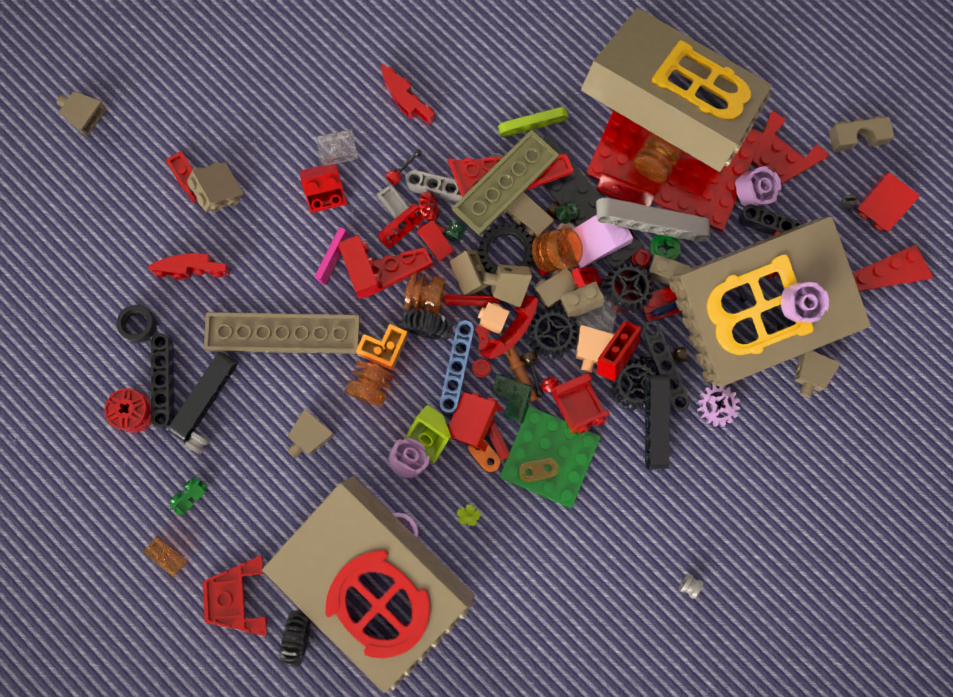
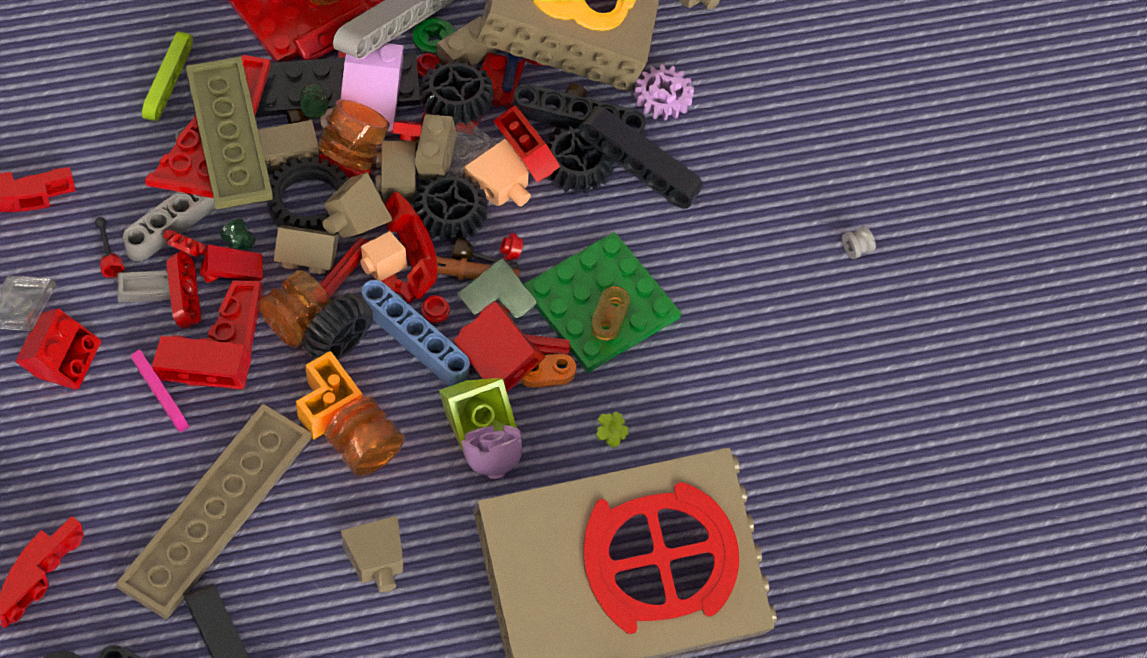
camera: 60 degrees left, 20 degrees down
(579, 404) = (560, 228): red panel -> none

